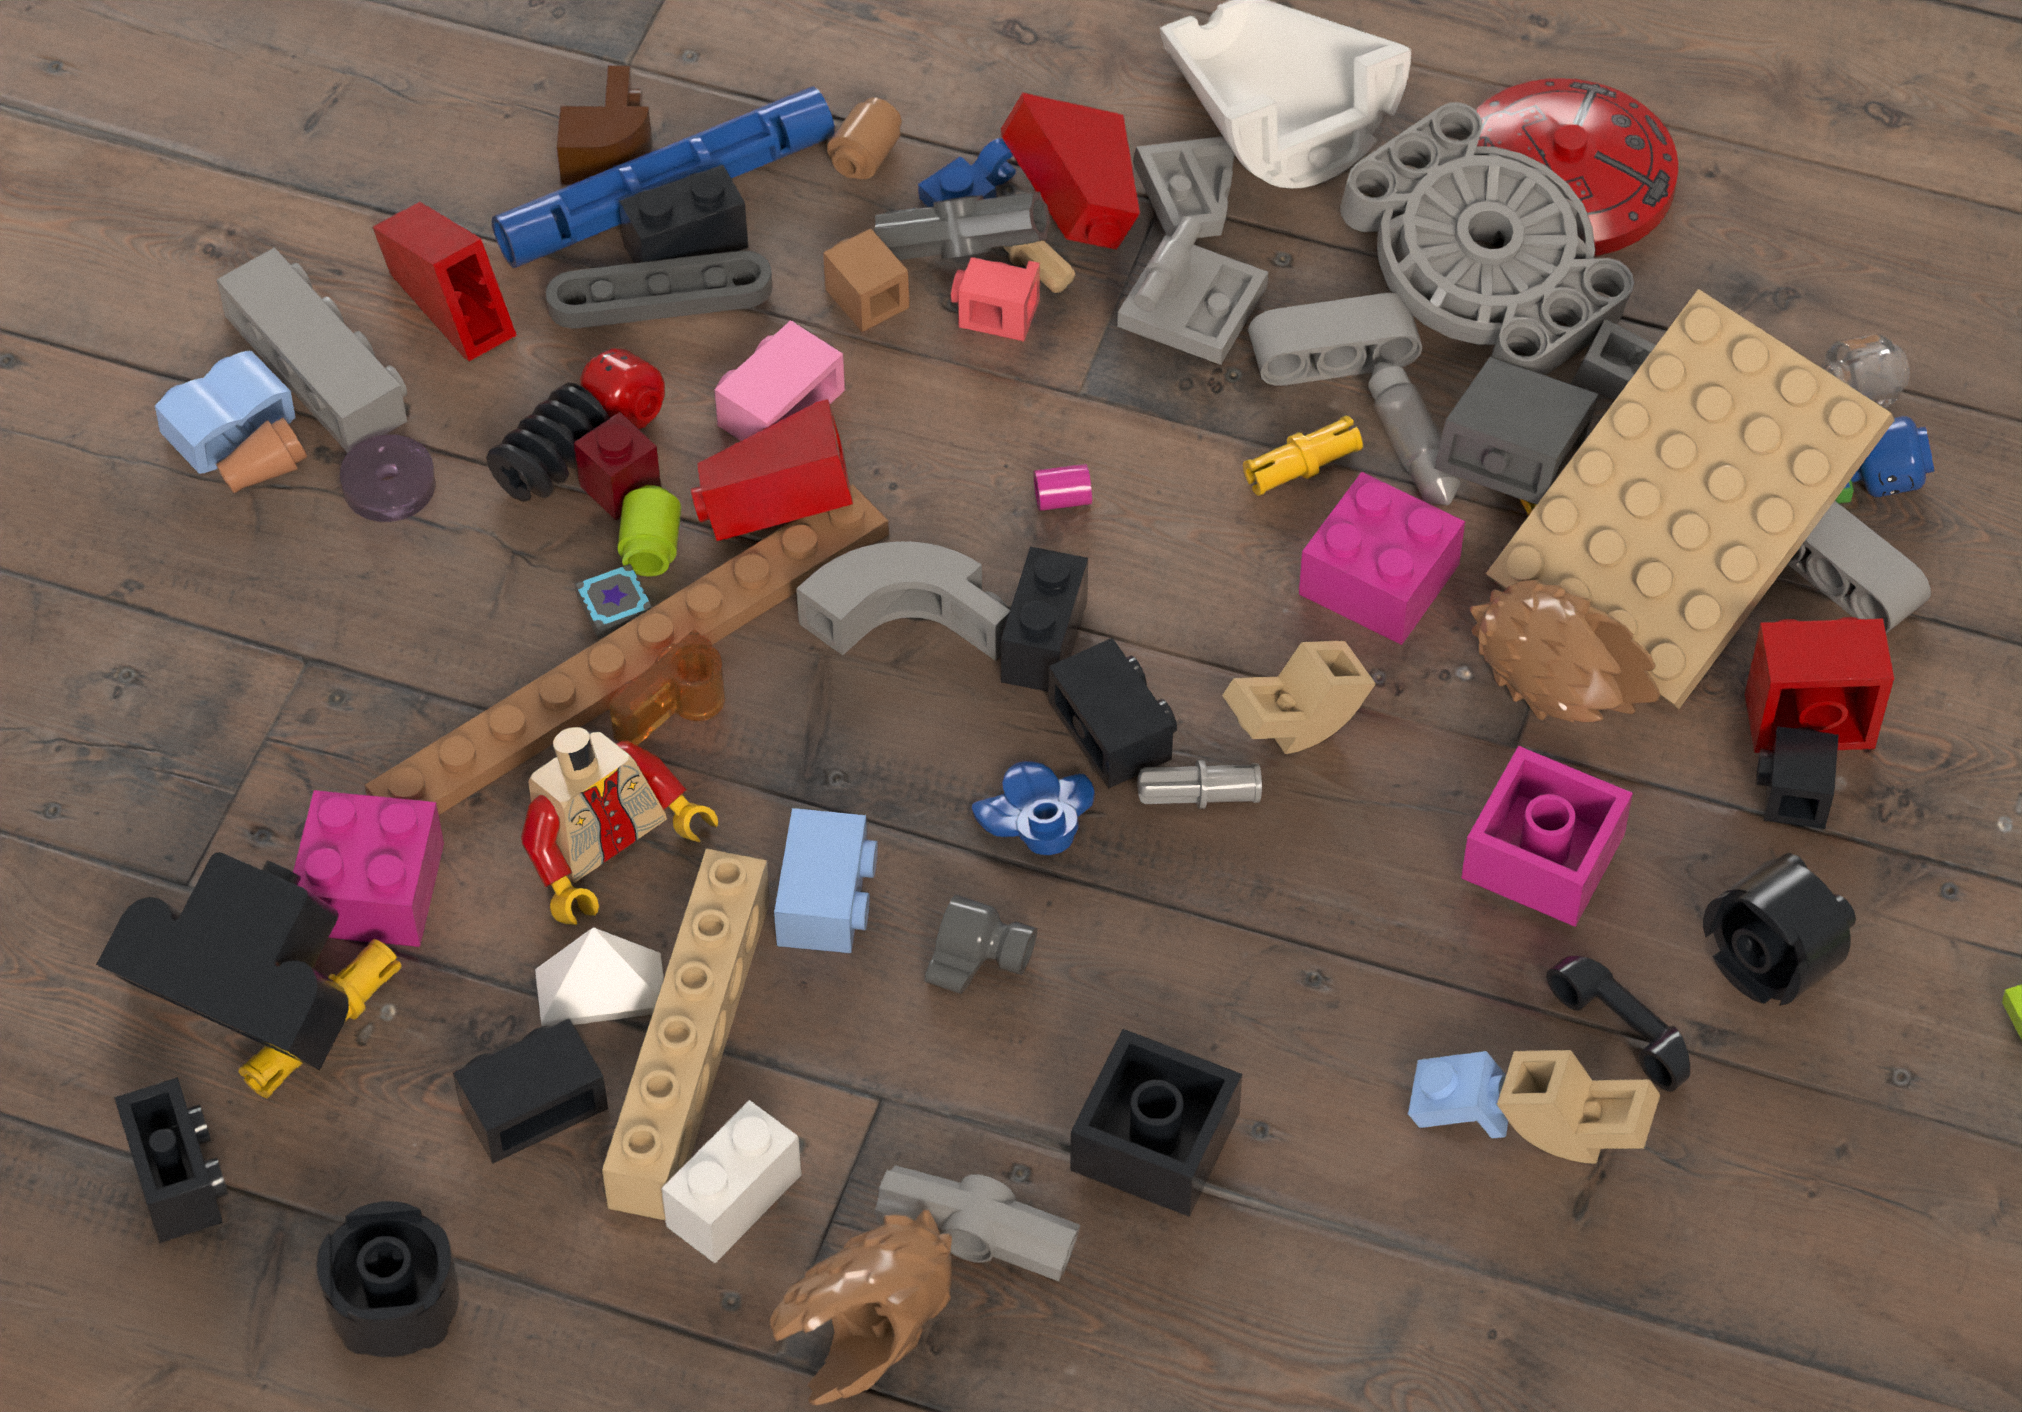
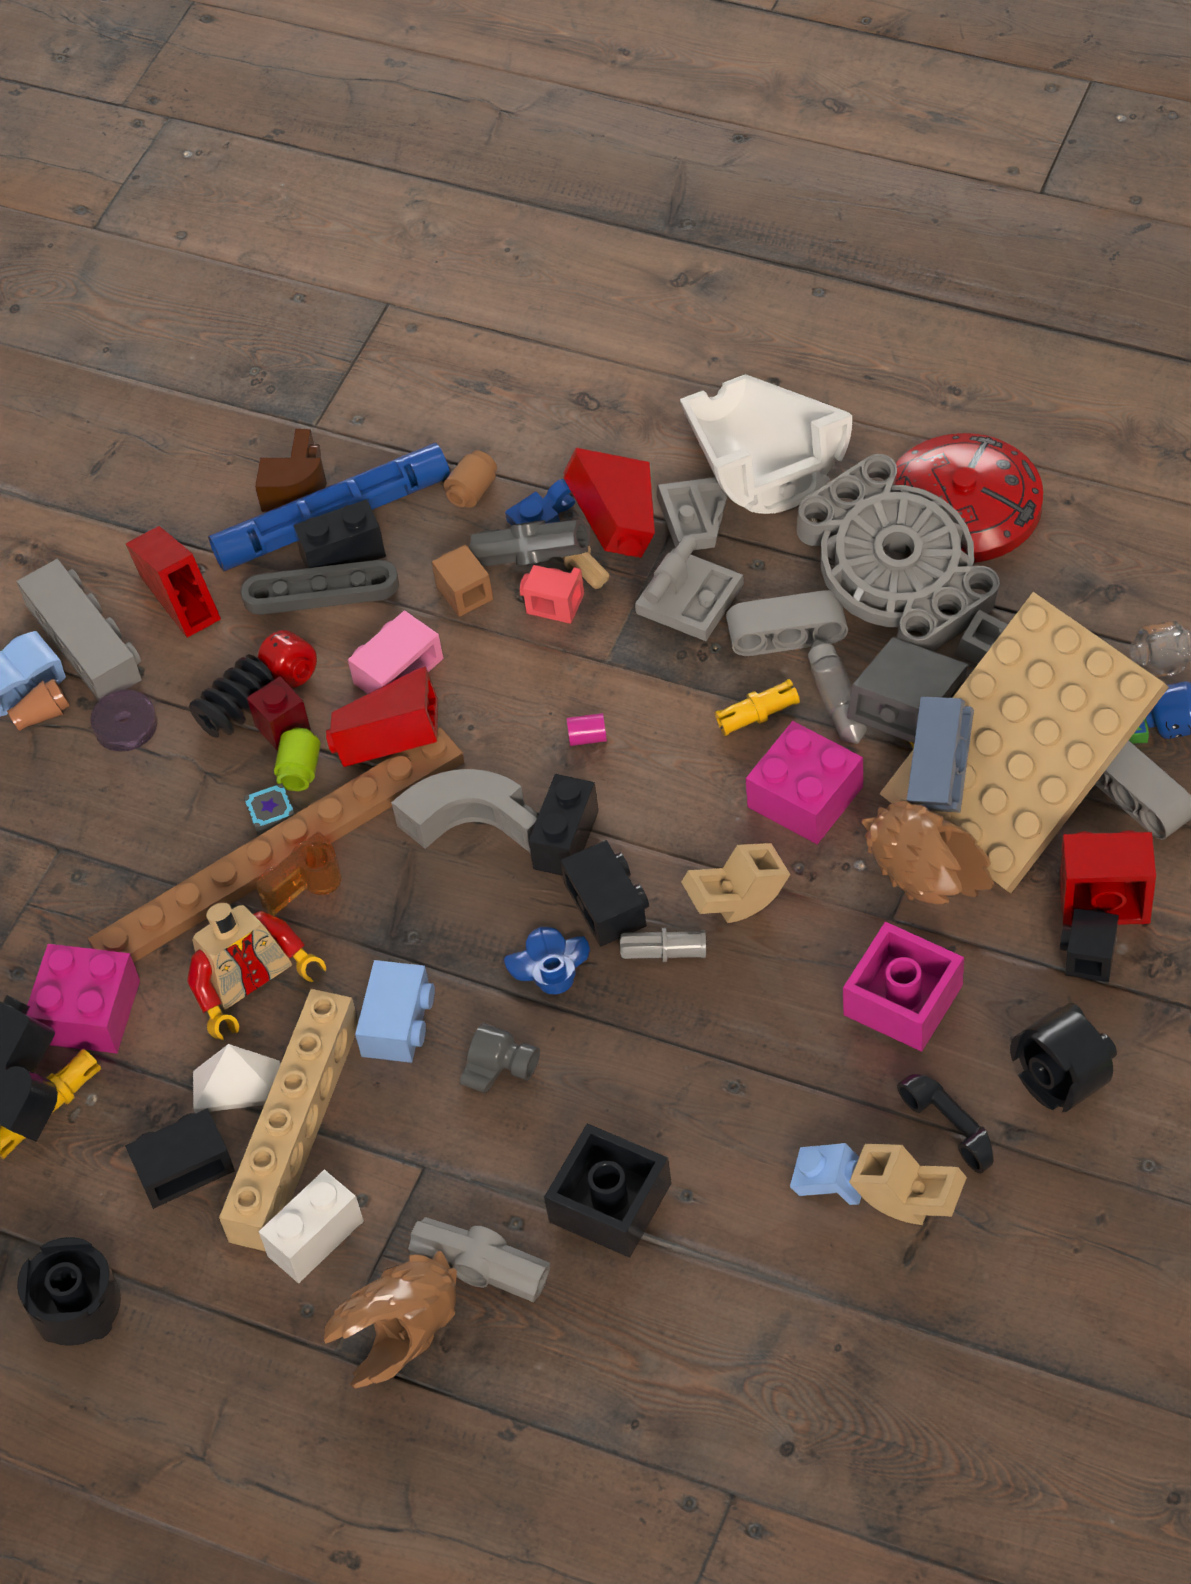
camera: 10 degrees right, 0 degrees up
(1578, 514) = (940, 754): none -> sand blue piece

